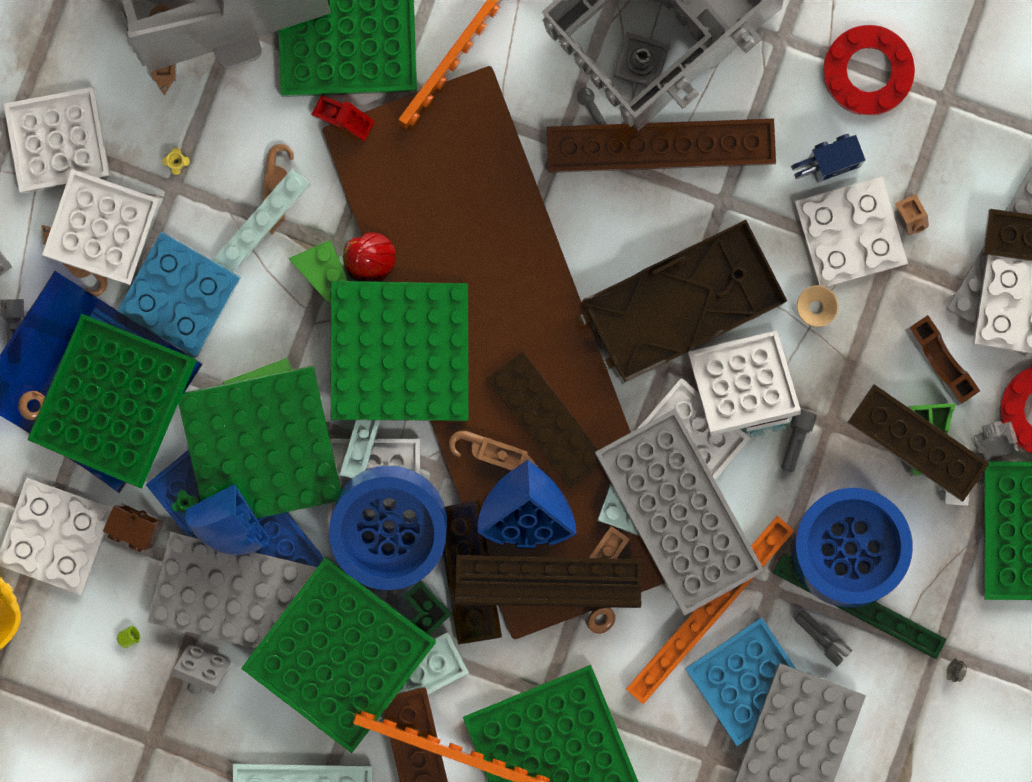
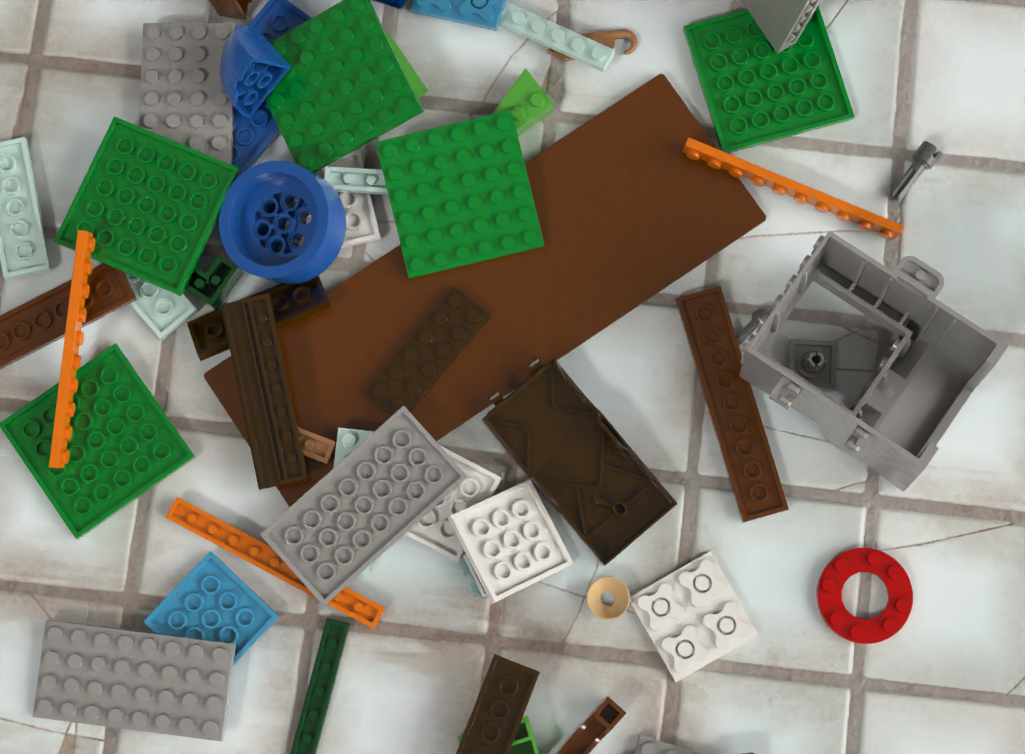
camera: 75 degrees right, 5 degrees down
(125, 638) = (125, 8): lime piece -> none
(182, 497) = (269, 26): green plate -> none
(200, 669) = (108, 83): light grey plate -> none
(343, 116) = (677, 89): red bracket -> none
(369, 257) = (546, 145): red hair -> none
(490, 450) = (383, 311): medium nougat plate -> none
(526, 510) = (331, 354): blue brick -> none
(603, 626) = (234, 458): medium nougat piece -> none
(802, 425) = (484, 611): dark grey piece -> none
(831, 645) = (263, 698): dark grey piece -> none
(832, 159) = (761, 576): dark blue brick -> none
(882, 524) = (328, 702): blue wheel -> none
(913, 215) = (727, 675): medium nougat bracket -> none

